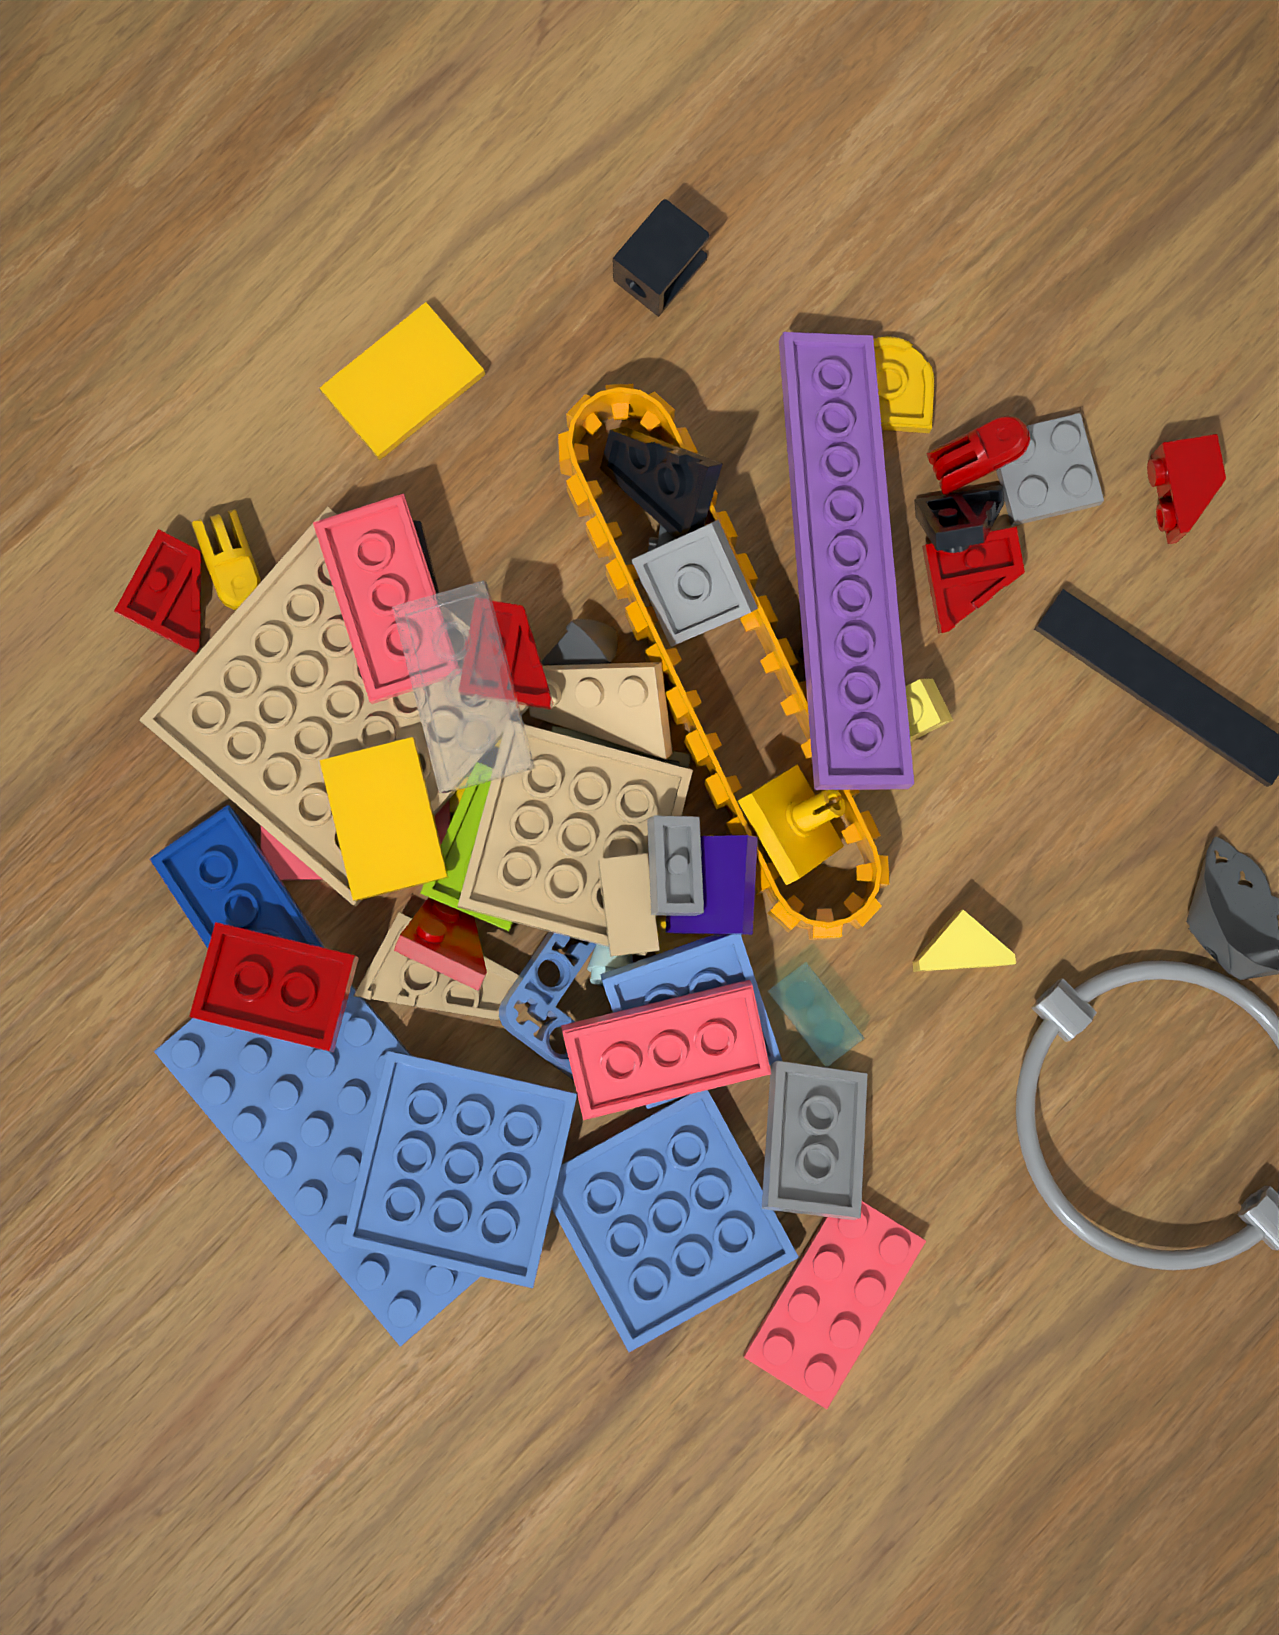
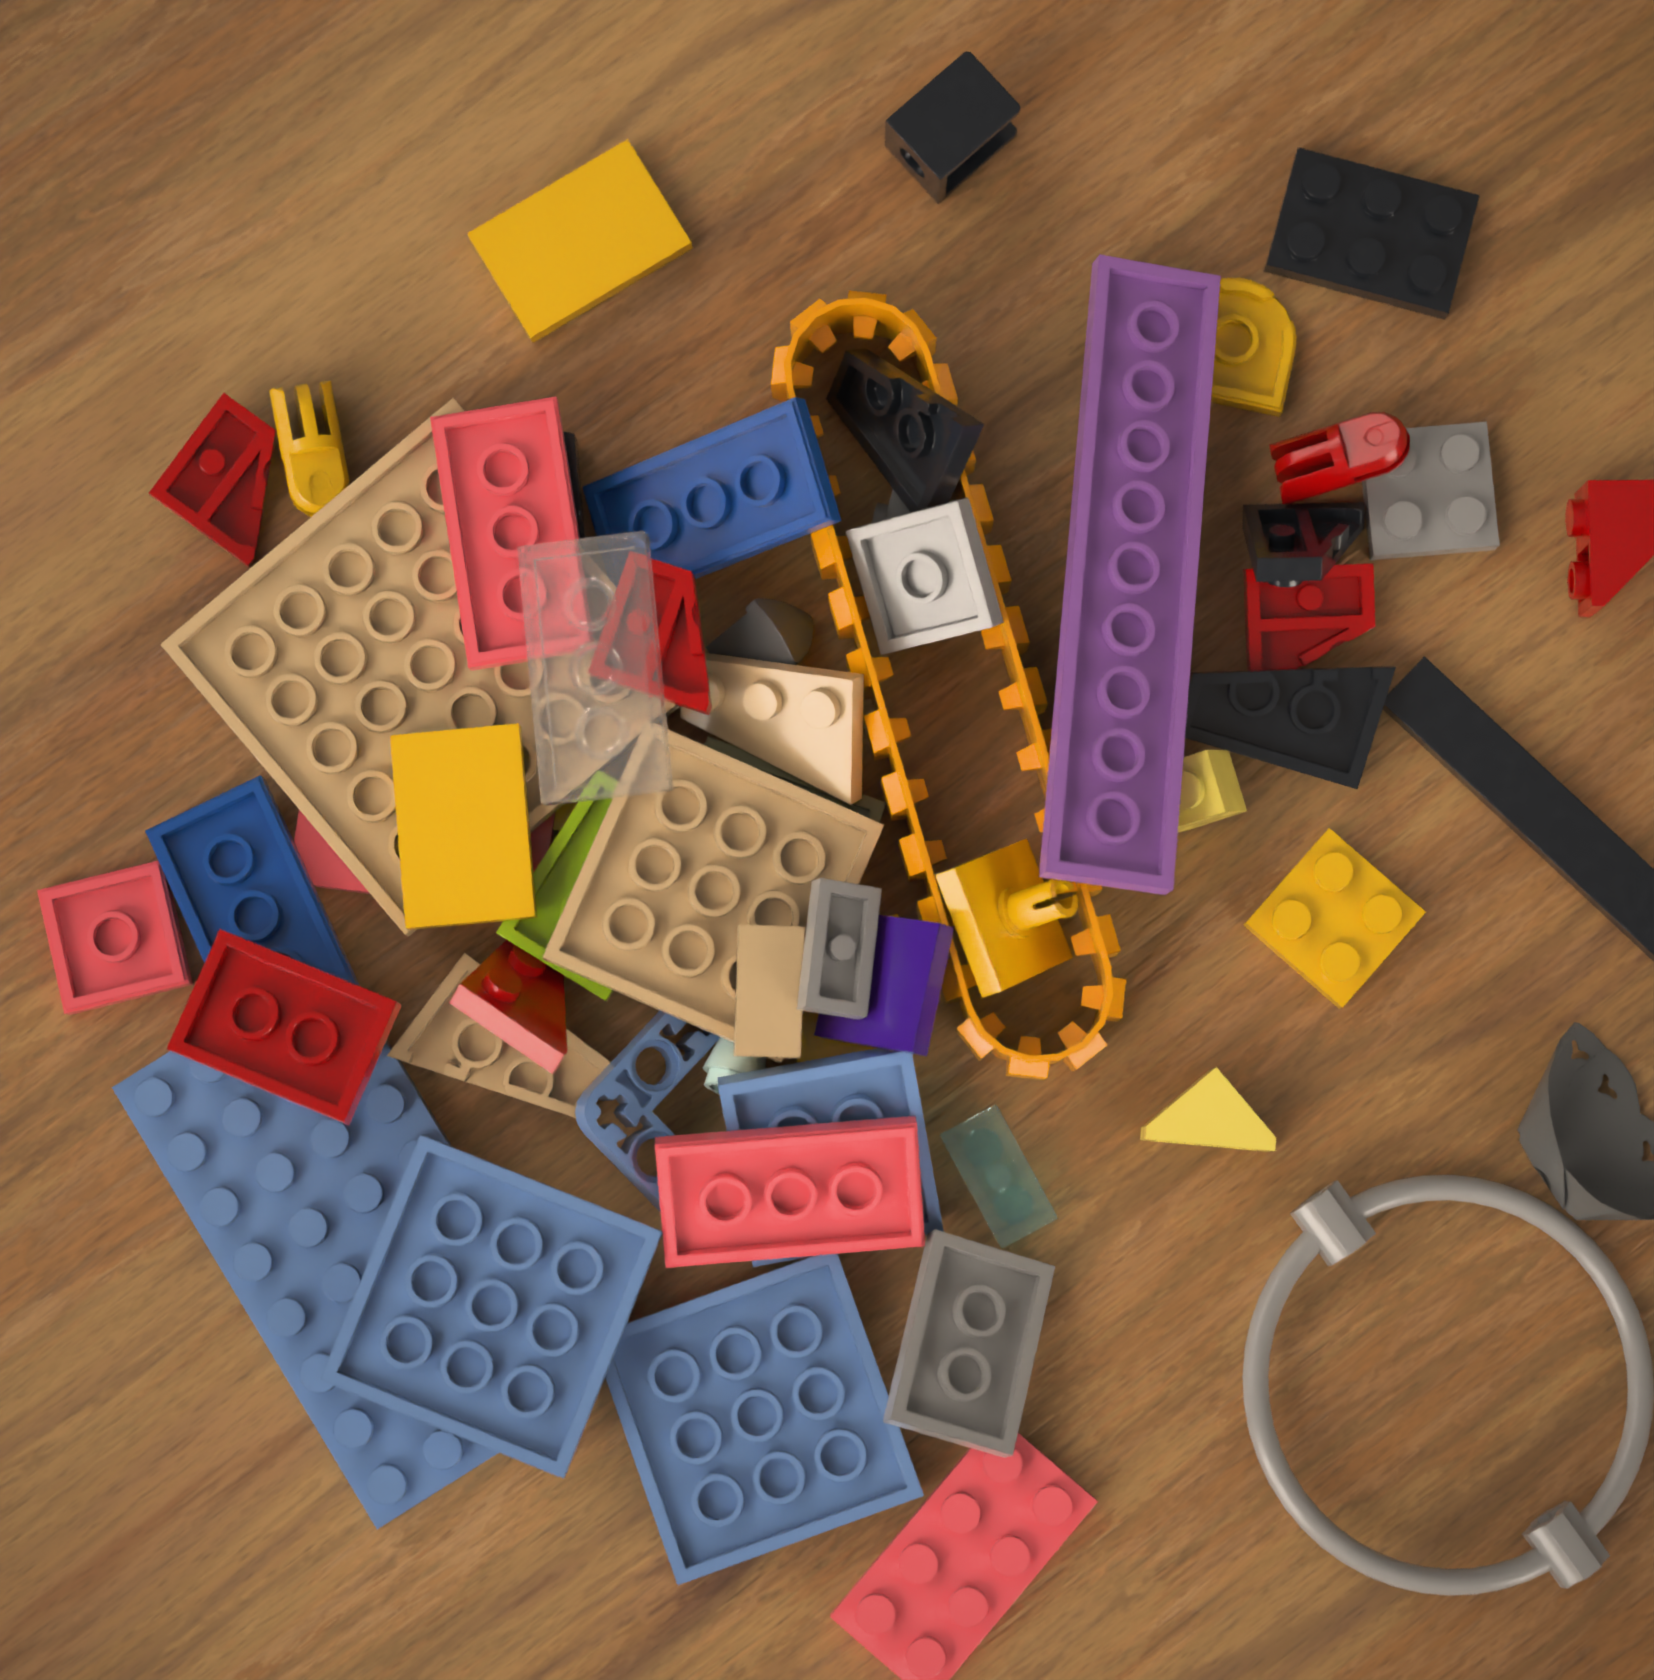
camera: 15 degrees right, 0 degrees up
(139, 941) = (114, 937): none -> coral tile
(537, 545) = (723, 492): none -> blue tile
(975, 291) = (1371, 233): none -> black plate
(977, 647) = (1292, 717): none -> black wing
(1028, 788) = (1334, 918): none -> yellow plate

